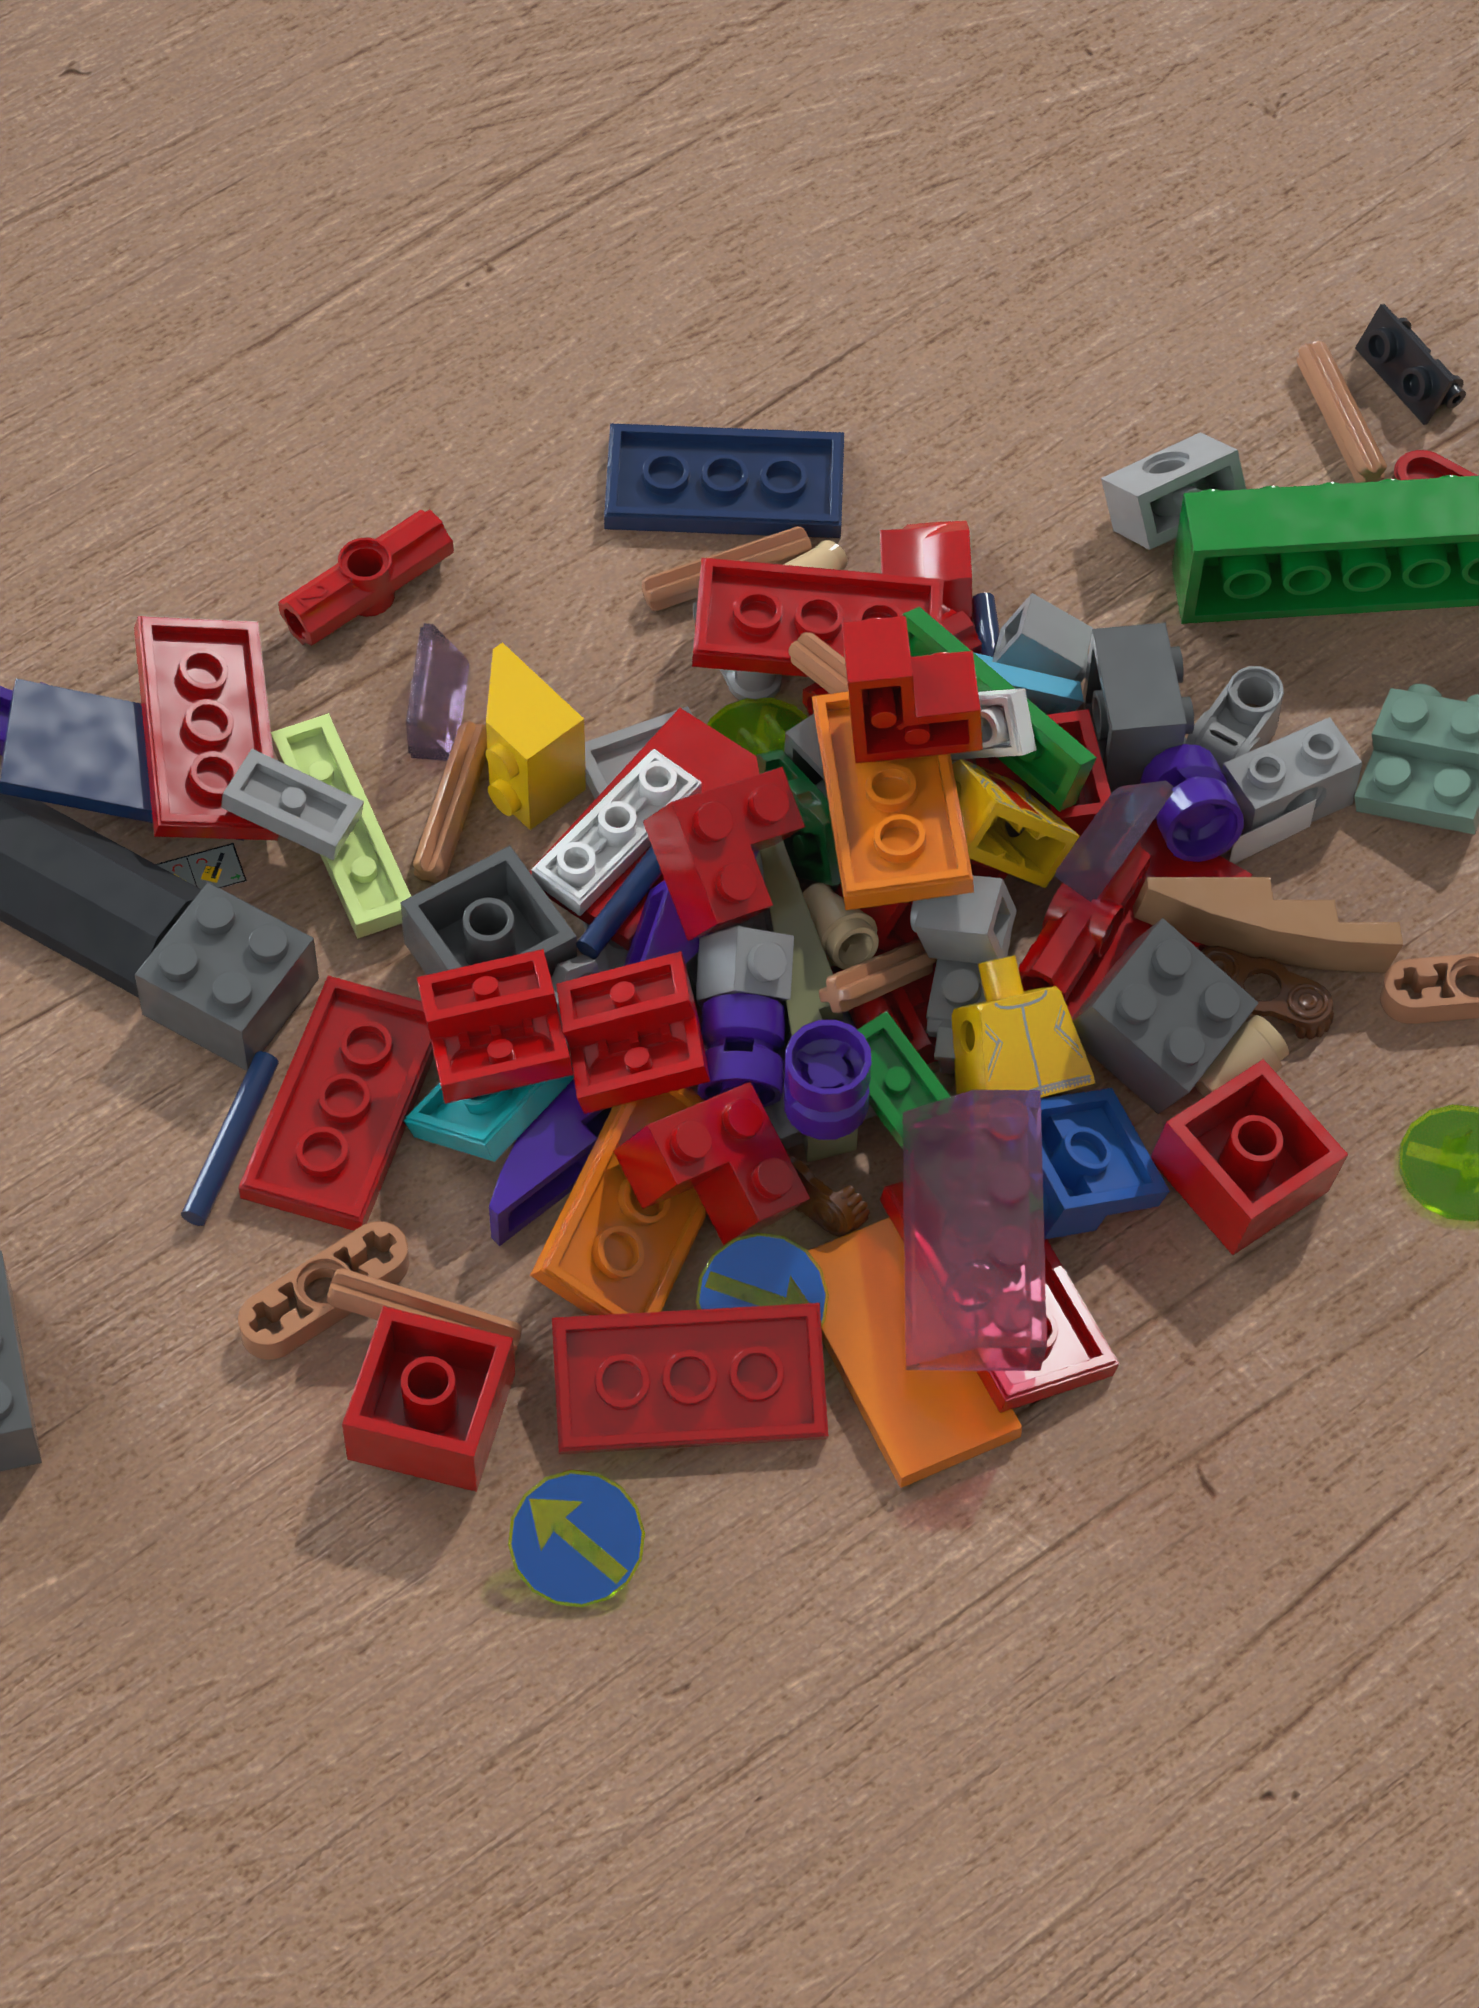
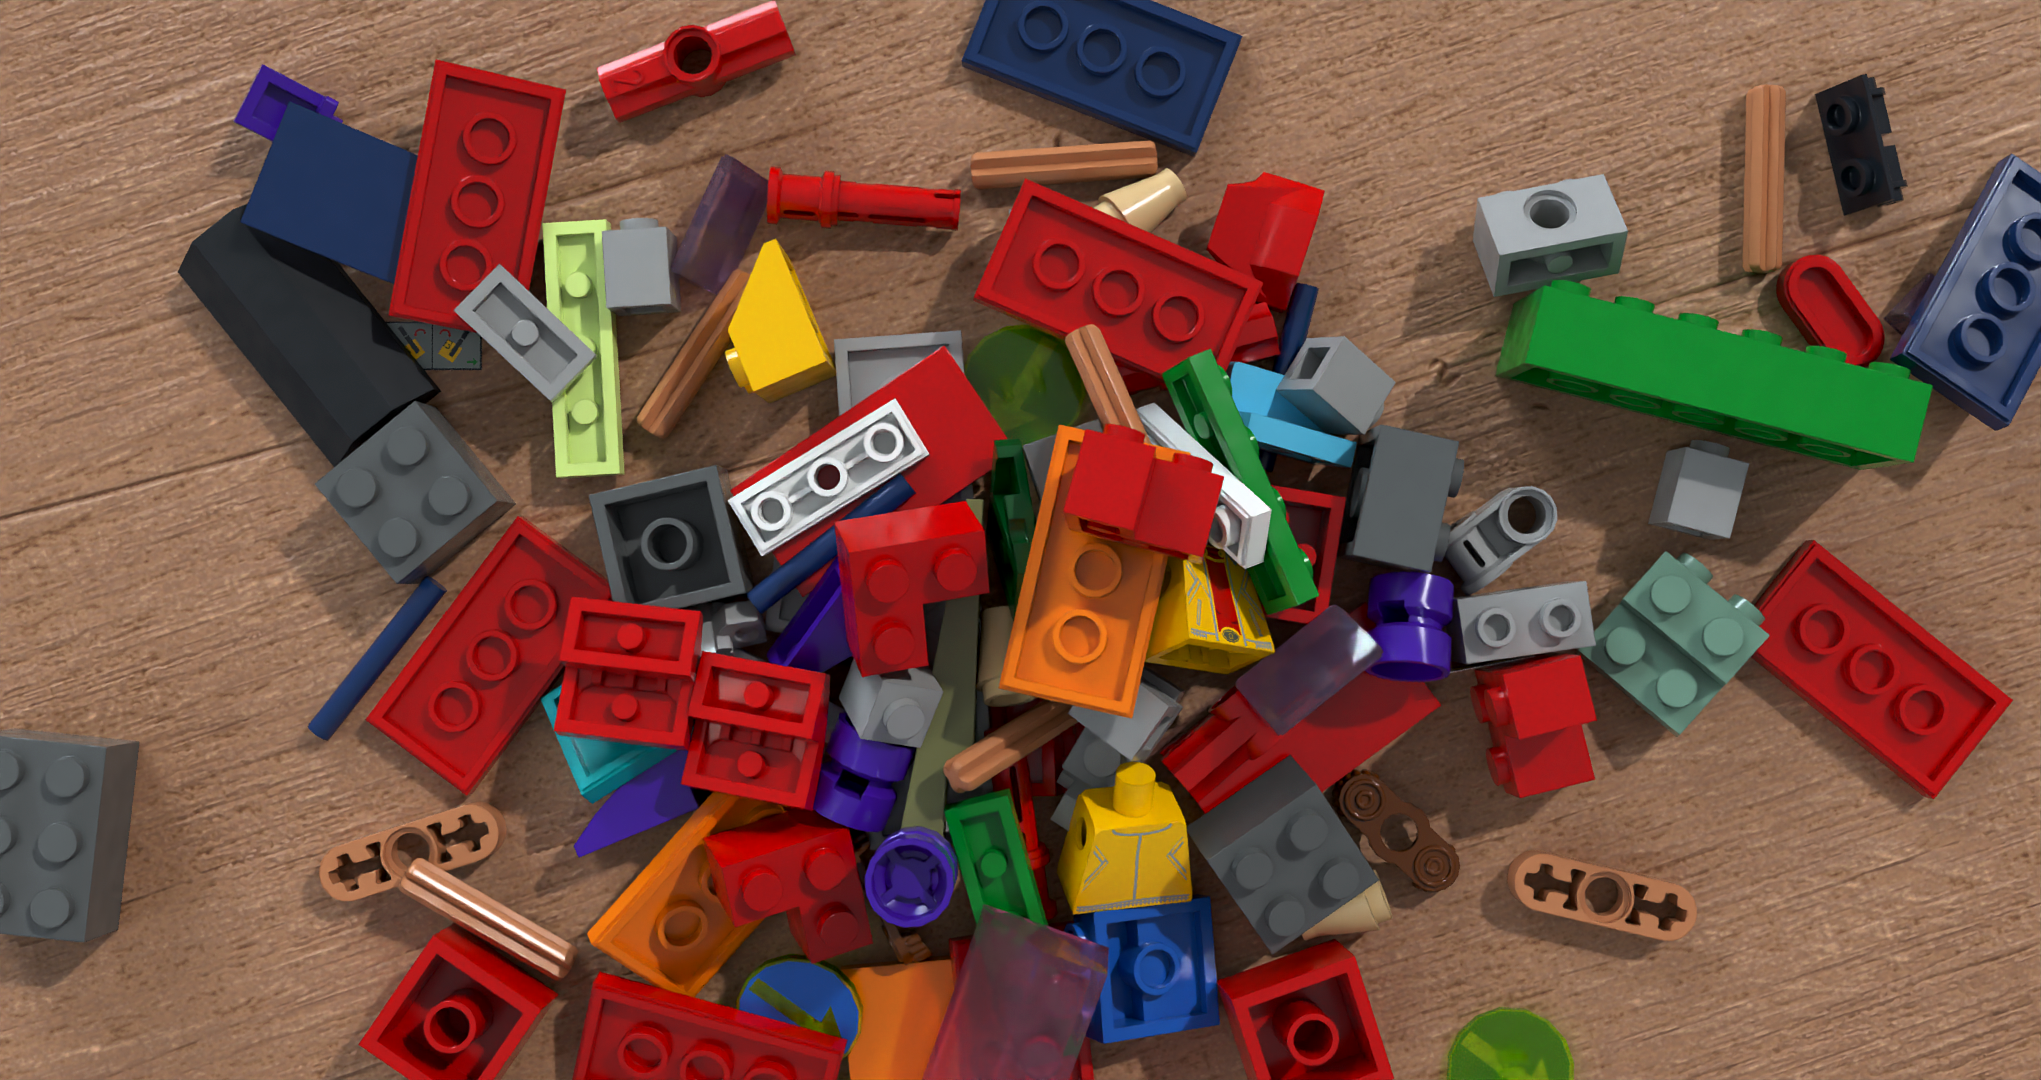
camera: 25 degrees right, 30 degrees up
(378, 744) = (640, 268): none -> light grey brick
(558, 640) = (834, 200): none -> red pin
(1247, 919) = (1415, 772): medium nougat slope -> none
(1332, 841) = (1535, 722): none -> red brick
(1399, 644) = (1699, 491): none -> light grey brick

